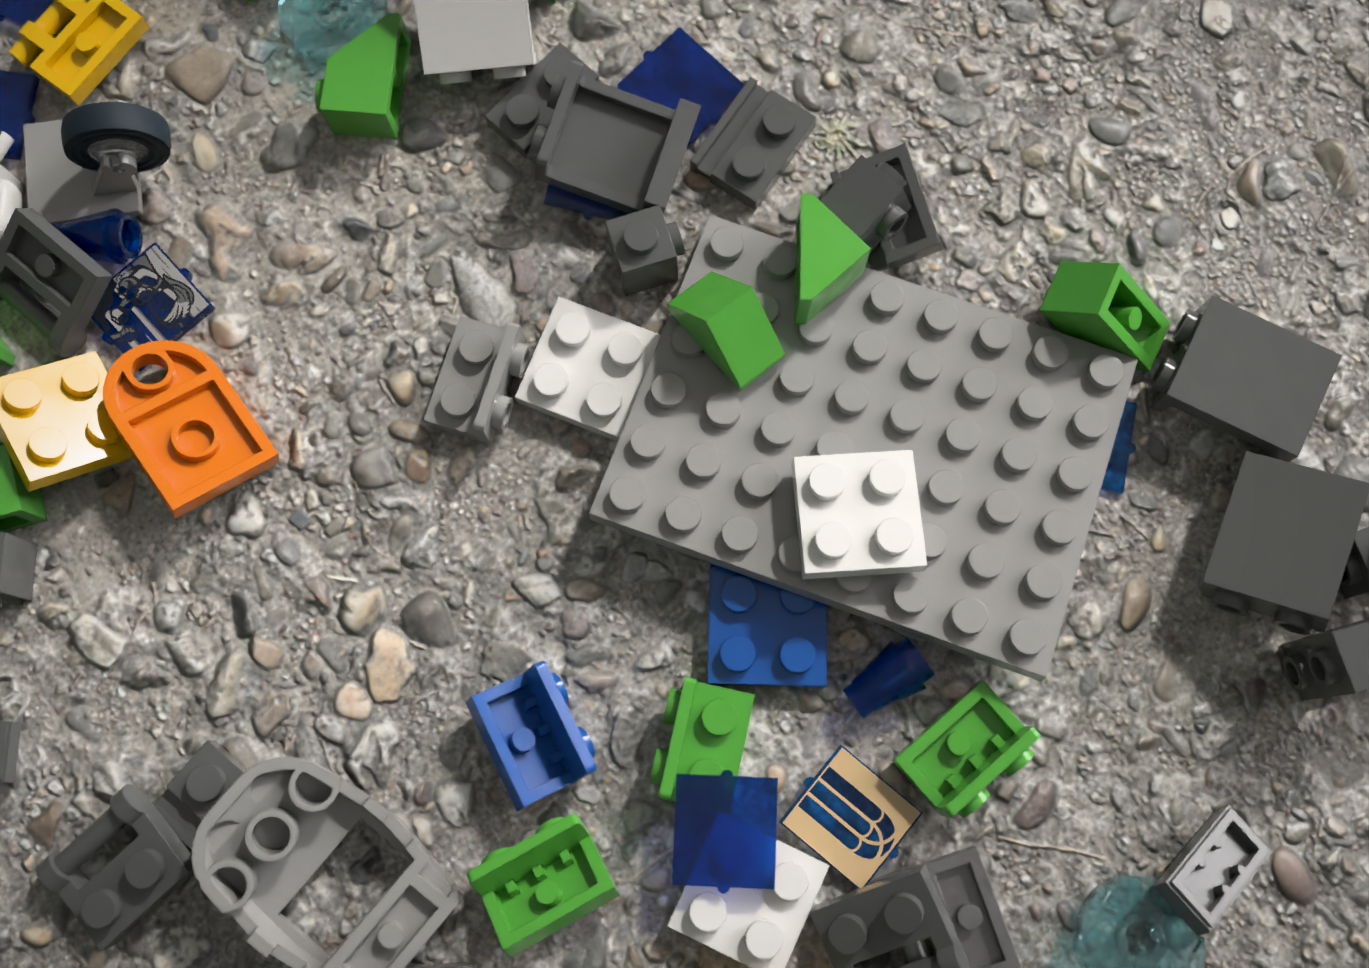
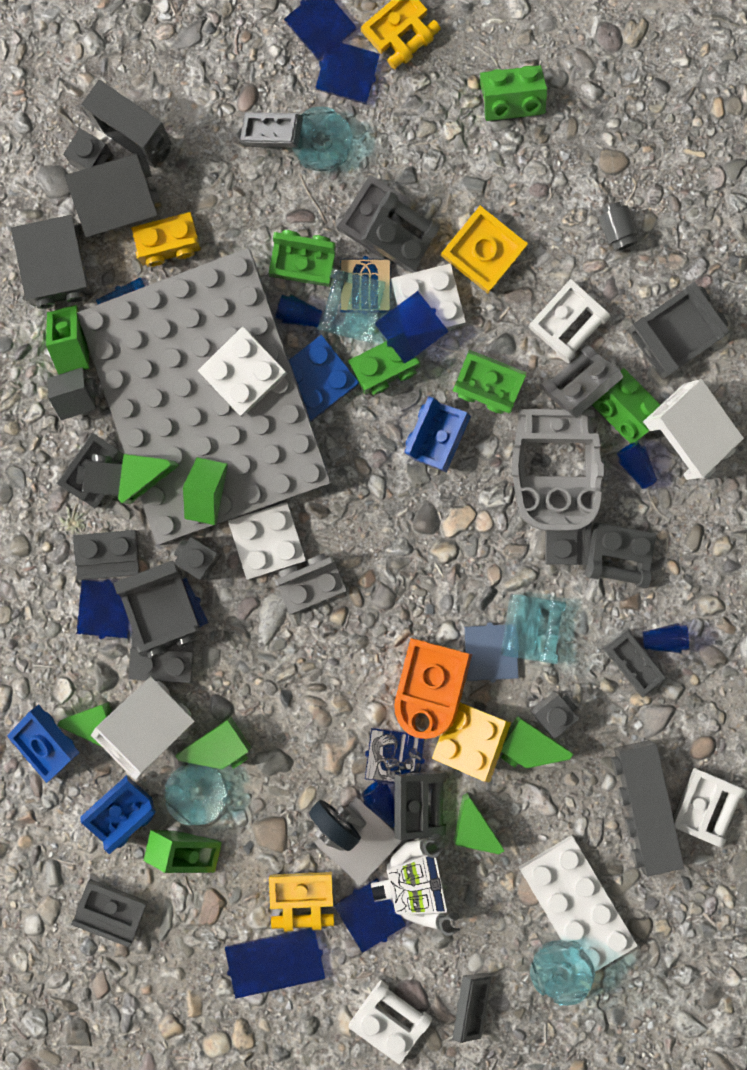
camera: 125 degrees left, 10 degrees up
(152, 631) = (523, 627): none -> clear light blue plate
(162, 557) = (486, 659): none -> sand blue piece
(817, 780) = (362, 306): none -> clear light blue plate
(1020, 259) = (72, 393): none -> dark grey brick
(1153, 572) = (166, 239): none -> yellow bracket

